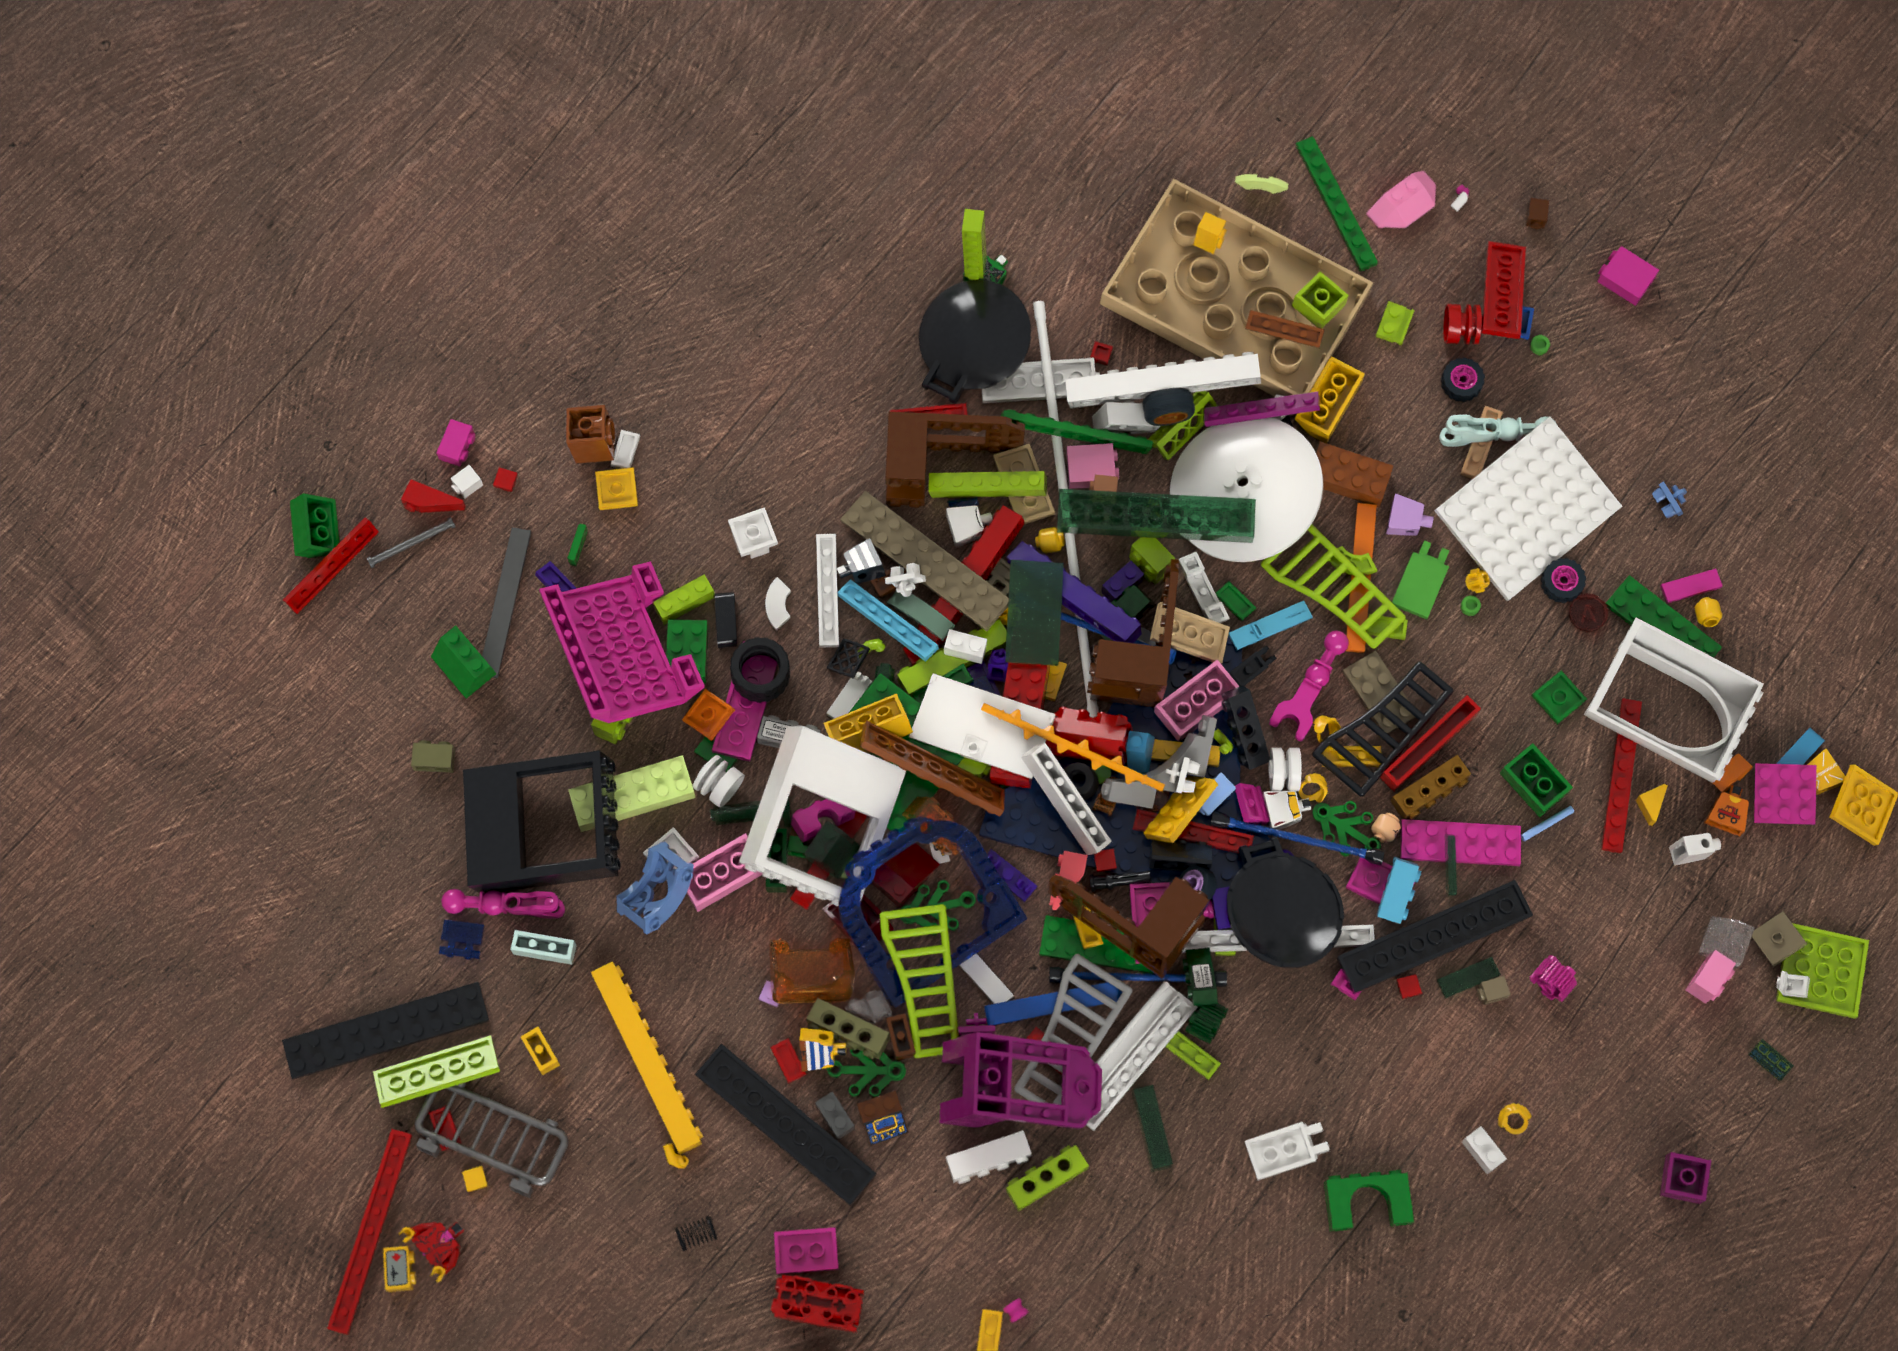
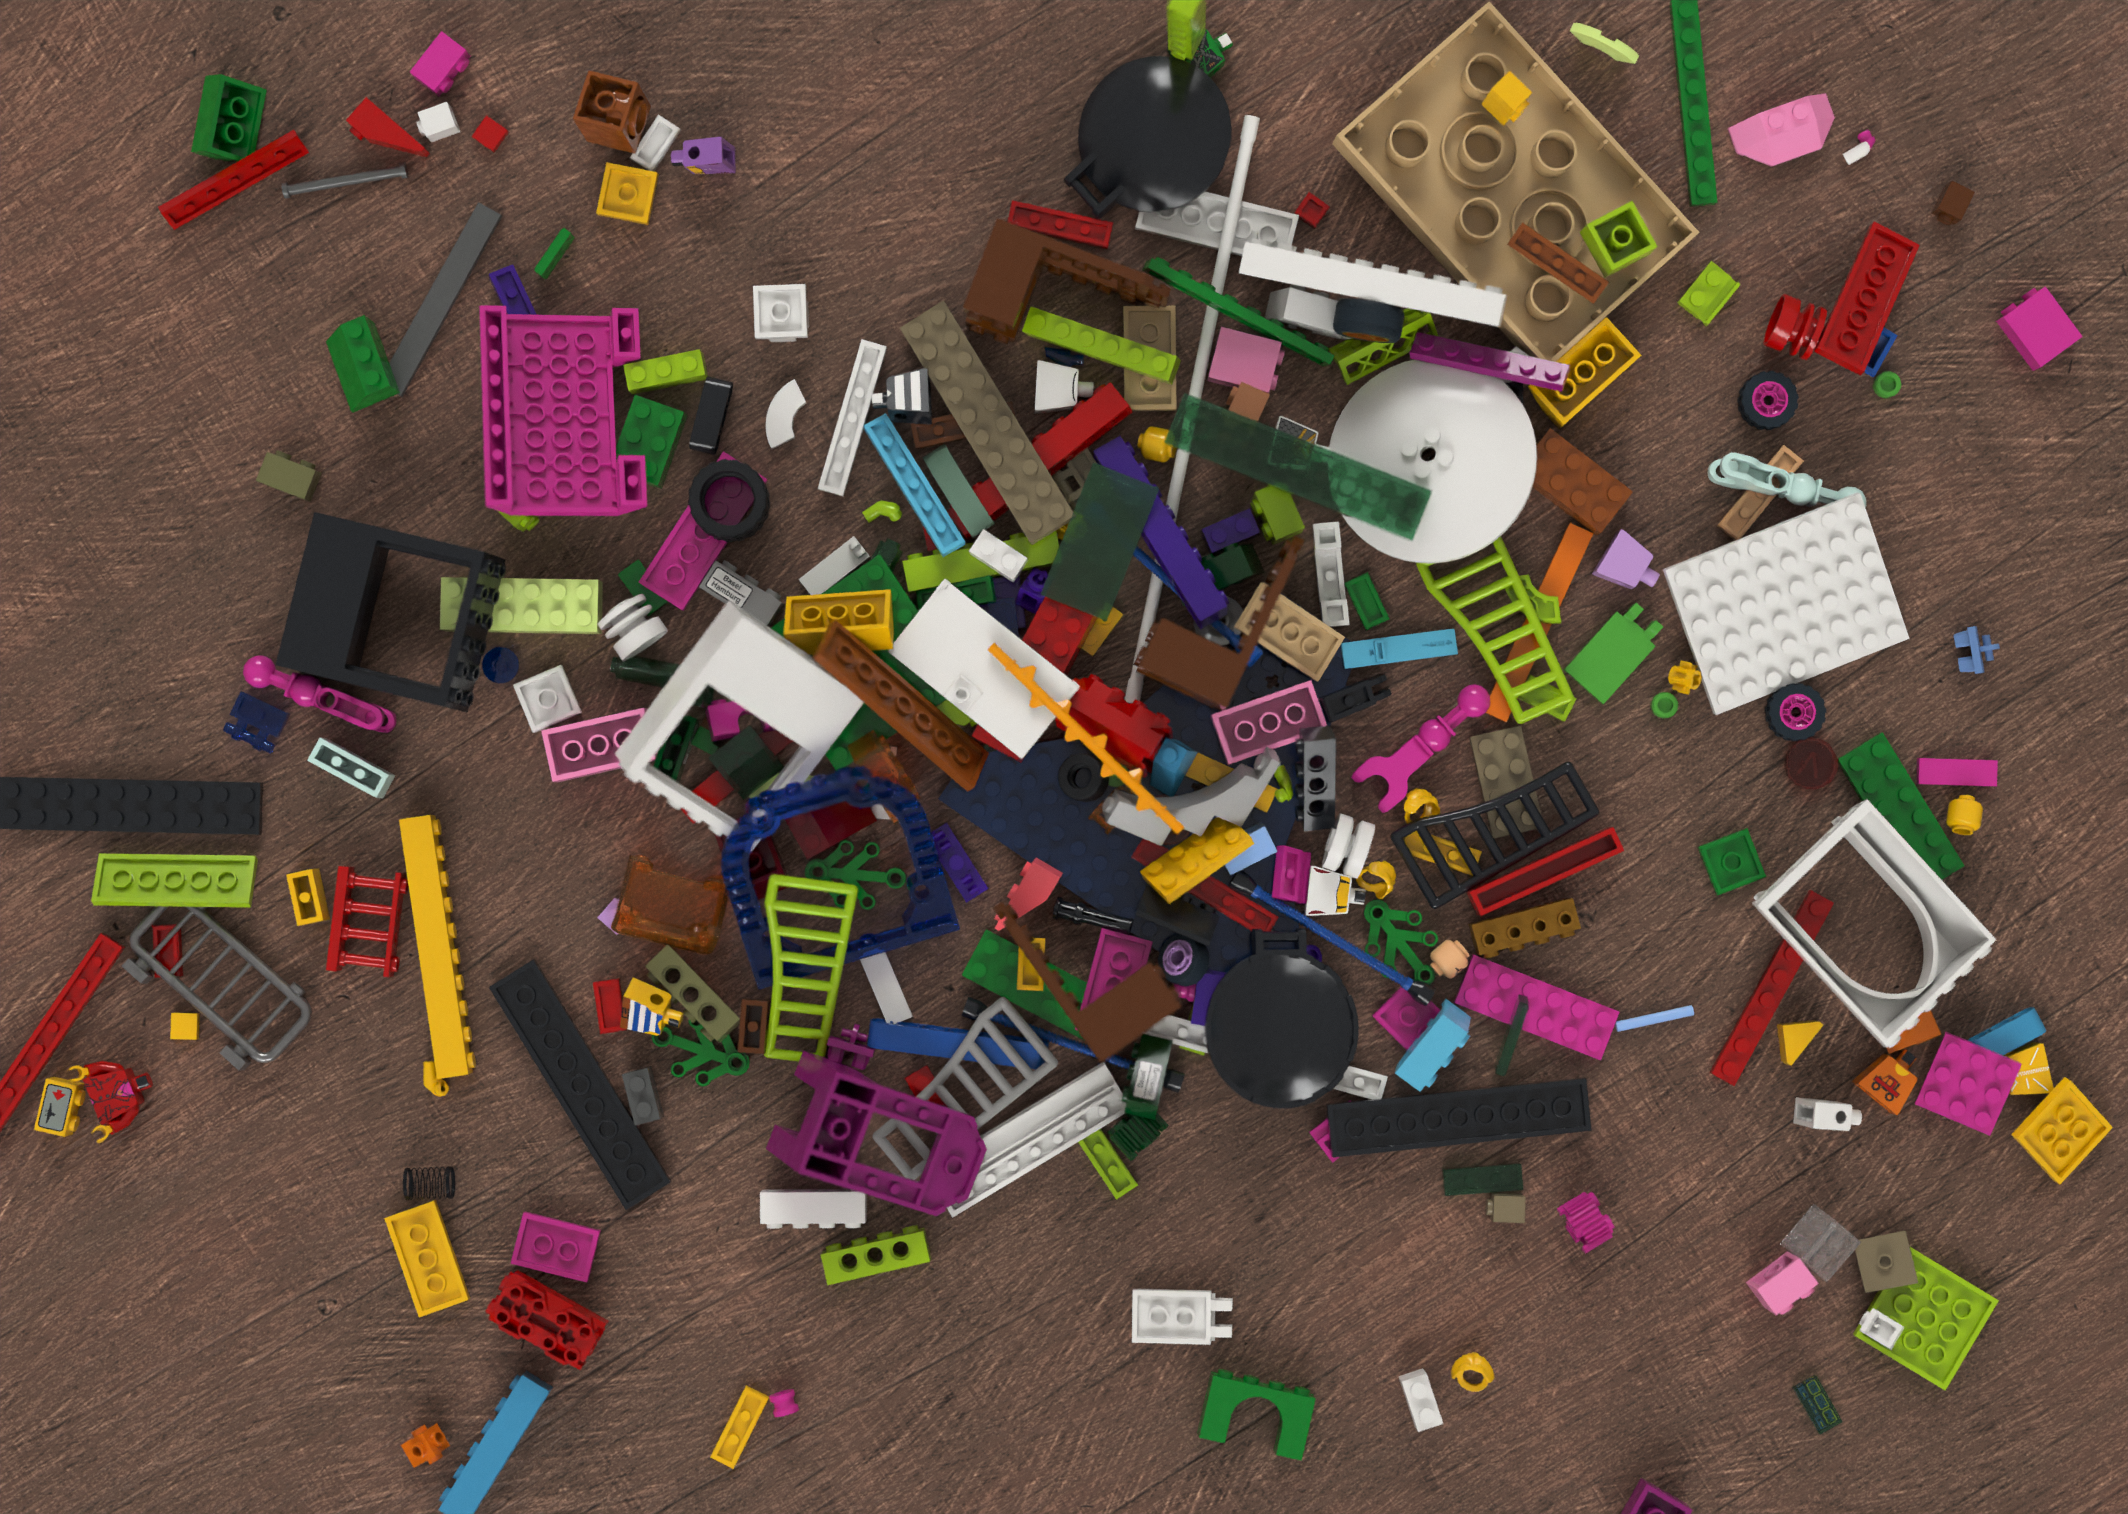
camera: 20 degrees right, 15 degrees up
(572, 1069) = (341, 931): none -> red fence
(630, 841) = (500, 665): none -> clear blue piece
(641, 893) = (541, 741): medium blue fence -> none
(664, 445) = (706, 156): none -> medium lavender torso
(708, 714) = (649, 534): orange tile -> none
(712, 1291) = (427, 1258): none -> yellow plate
(837, 656) = (840, 504): black window -> none
(871, 1008) = (729, 976): clear slope -> none
(882, 1118) = (700, 1116): slope -> none
(905, 582) = (962, 440): white hips -> none
(1066, 799) = (1055, 800): white brick -> none
(1105, 860) = (1082, 886): red tile -> none
(1152, 1128) = (1024, 1239): clear green brick -> none
(1187, 766) = (1209, 833): white hips -> none
(1409, 986) = (1404, 1166): red tile -> none
(1536, 780) = (1660, 962): green brick -> none

